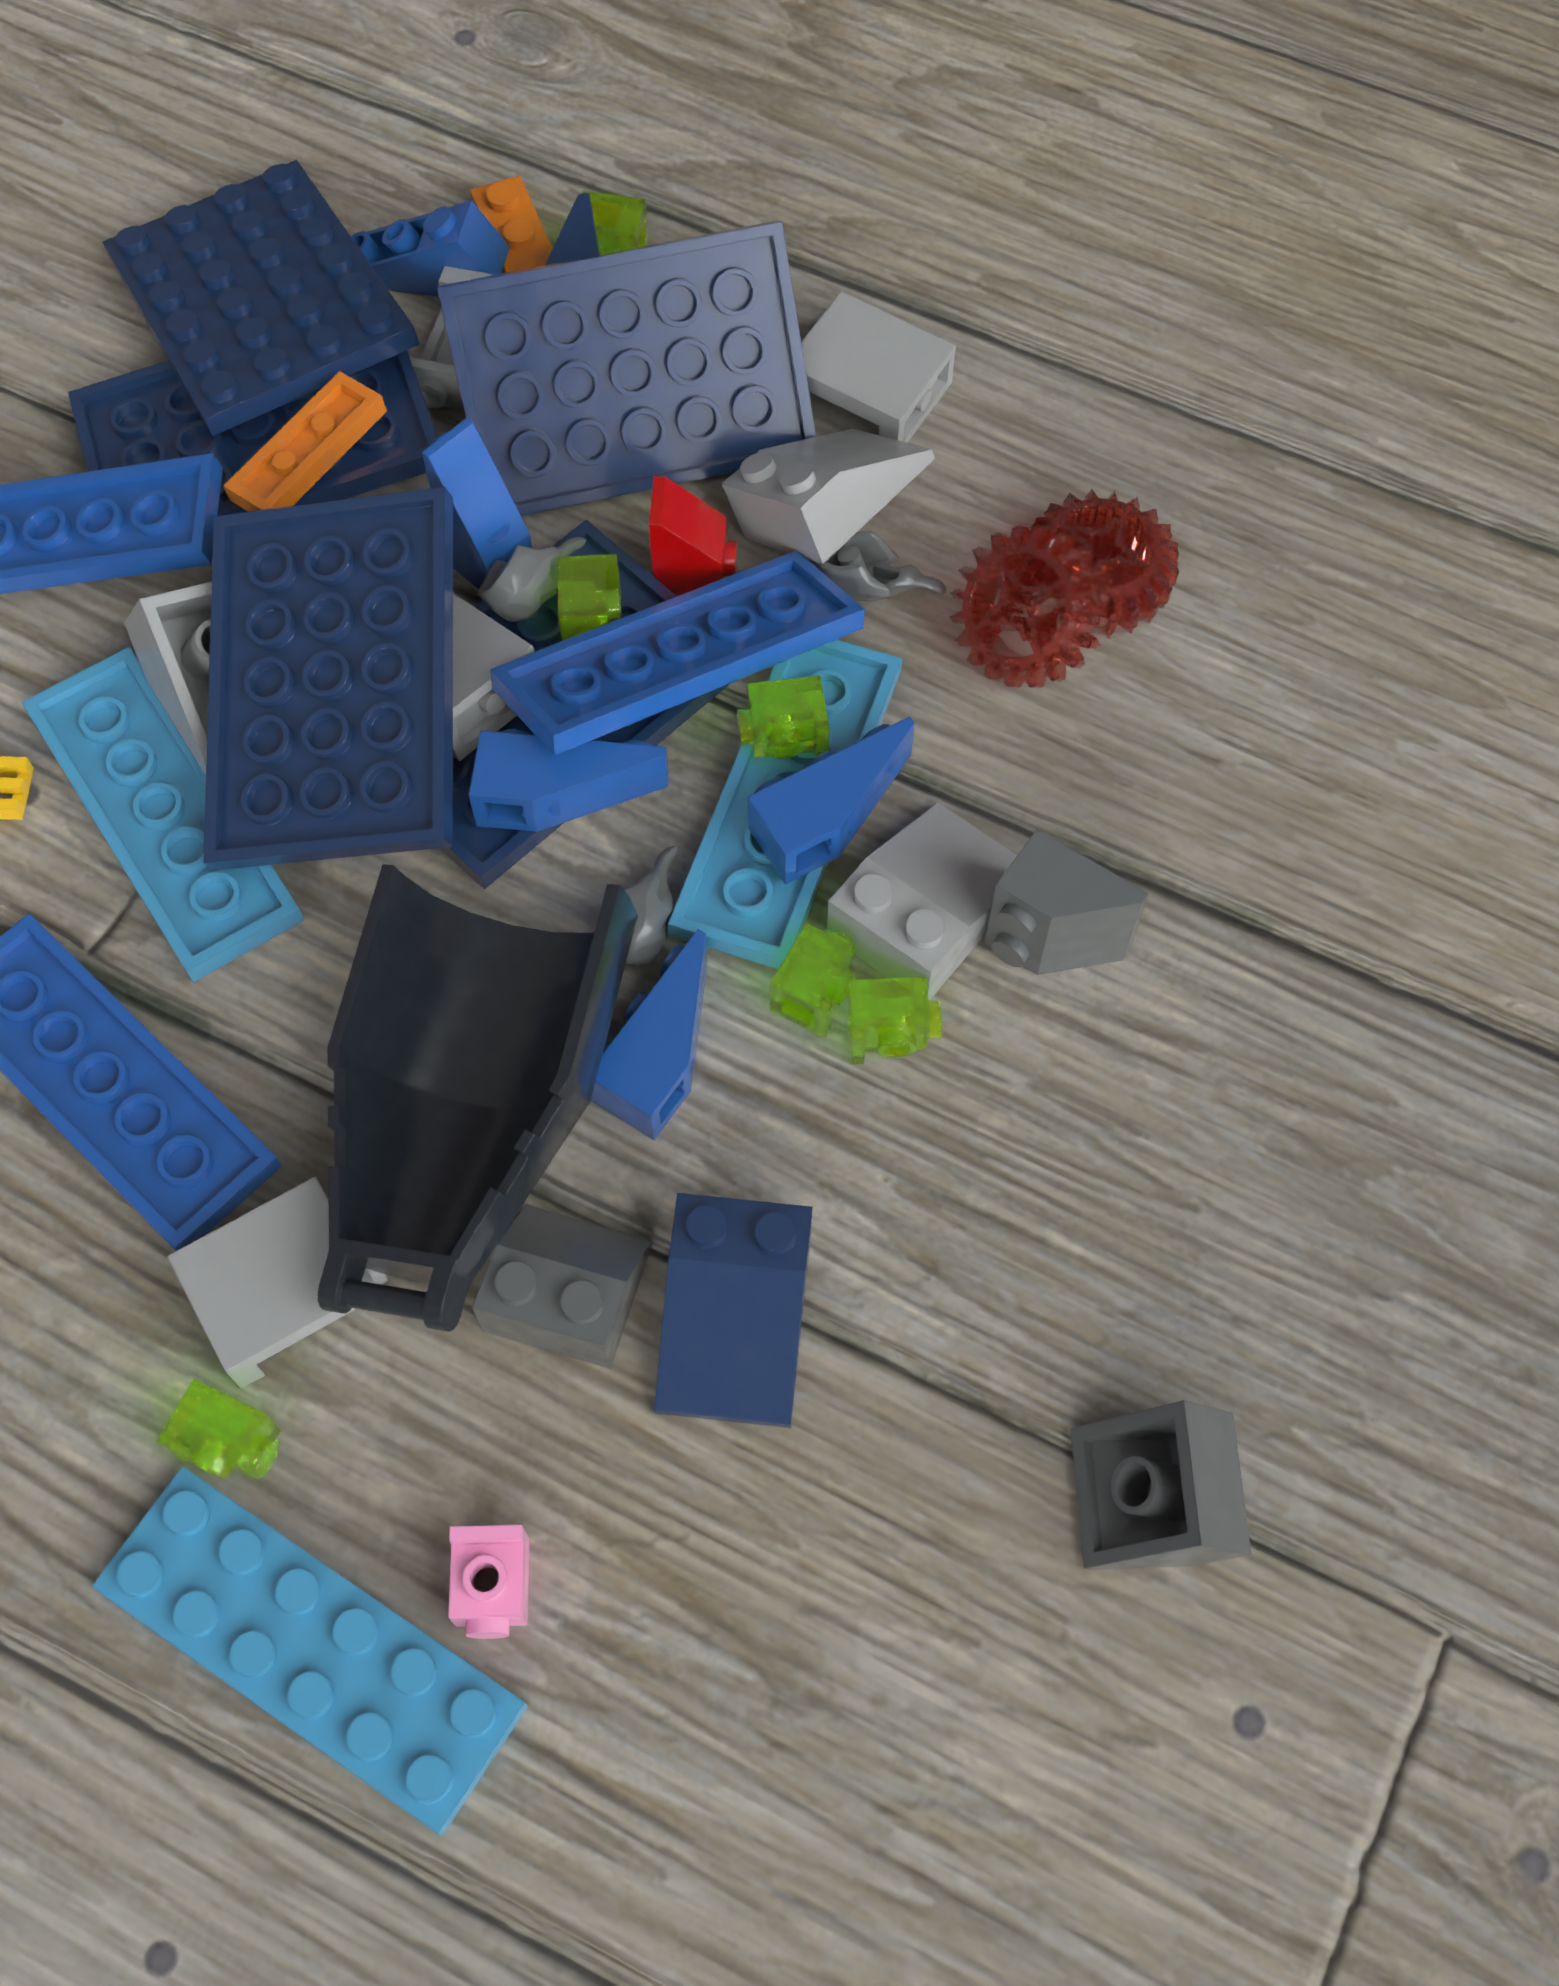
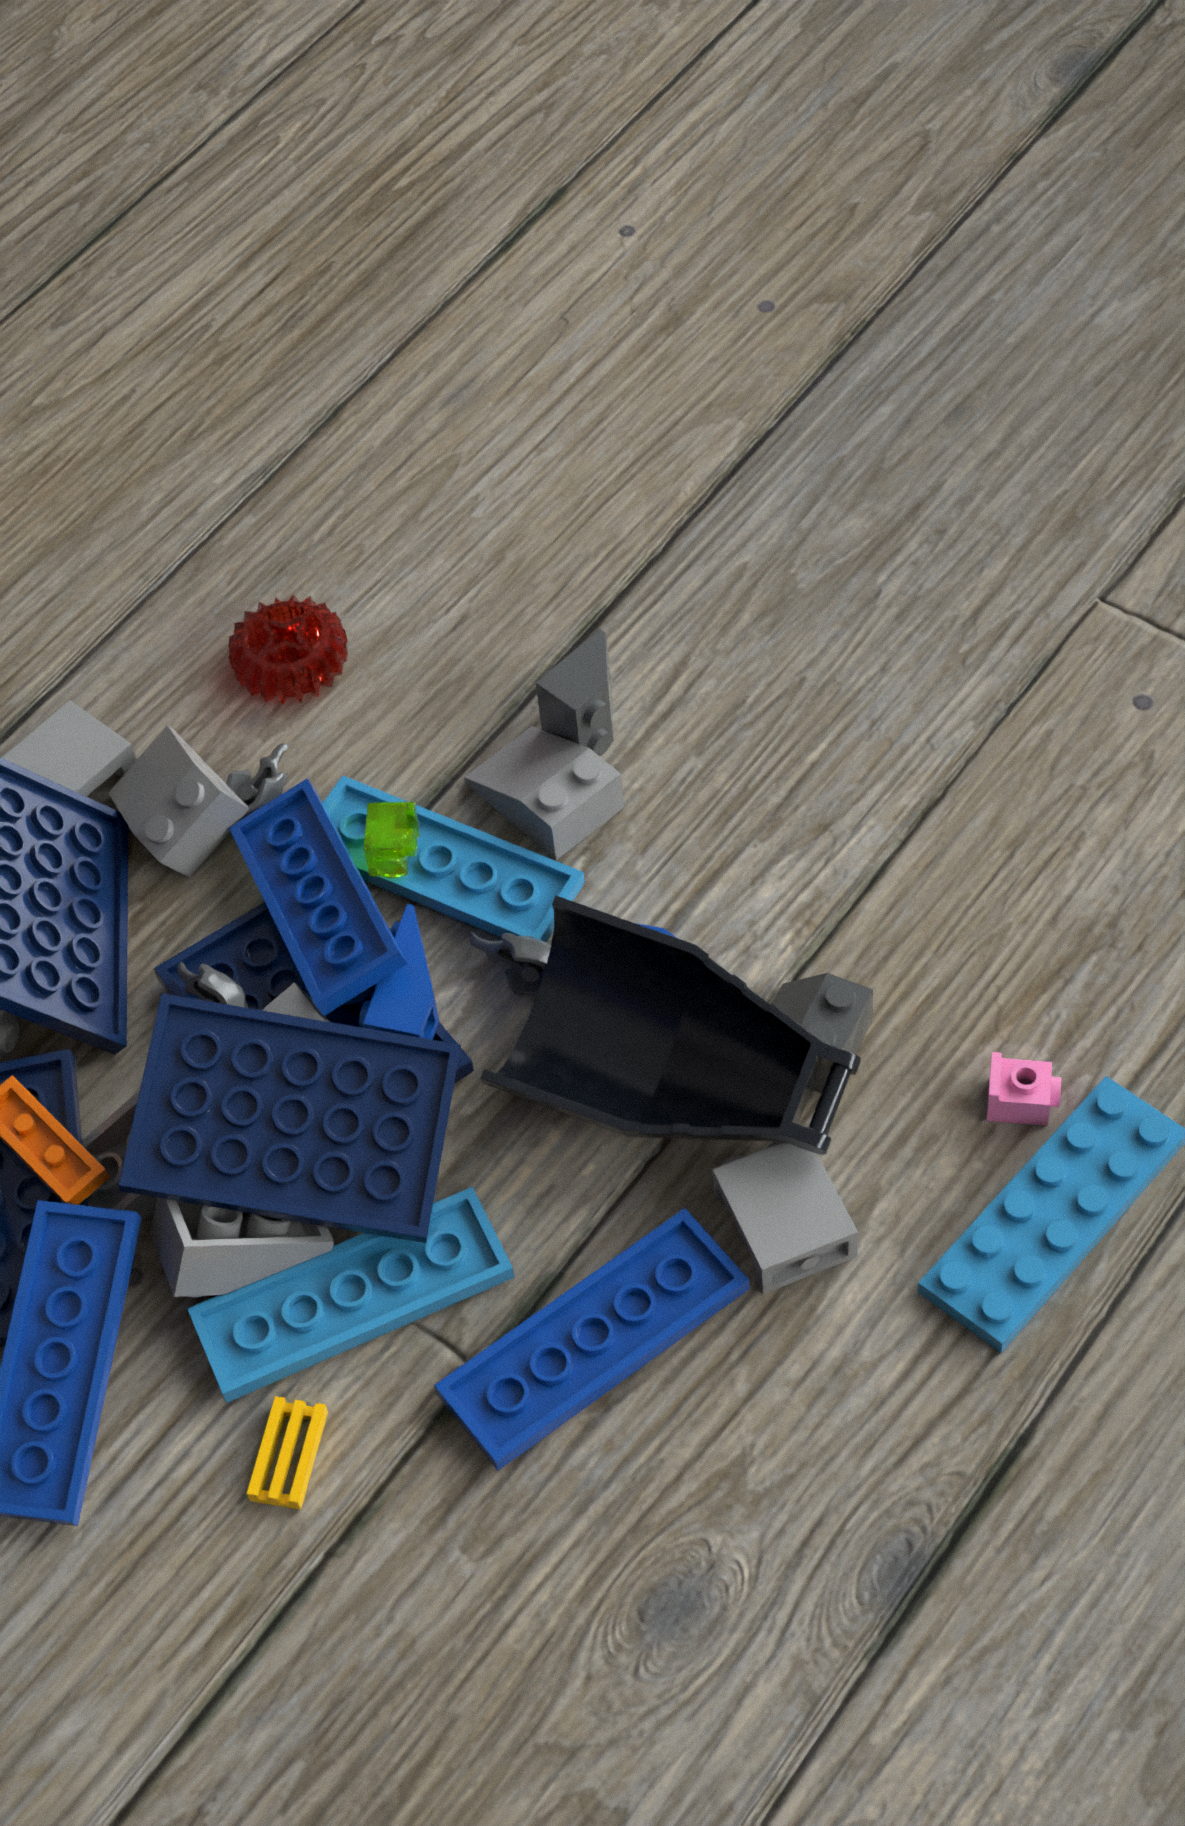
camera: 75 degrees left, 10 degrees down
(221, 1434) = (897, 1252): clear neon green brick -> none
(484, 514) = (133, 1017): slope -> none
(587, 593) = (251, 958): clear neon green brick -> none
(687, 539) = (203, 898): red slope -> none
(733, 1310) = (843, 929): dark blue slope -> none
(813, 979) = (602, 858): clear neon green brick -> none
(819, 809) = (472, 821): blue slope -> none
(891, 1017) = (640, 820): clear neon green brick -> none
(1005, 568) = (328, 663): clear red gear -> none
(1160, 1488) = (998, 716): dark grey slope -> none

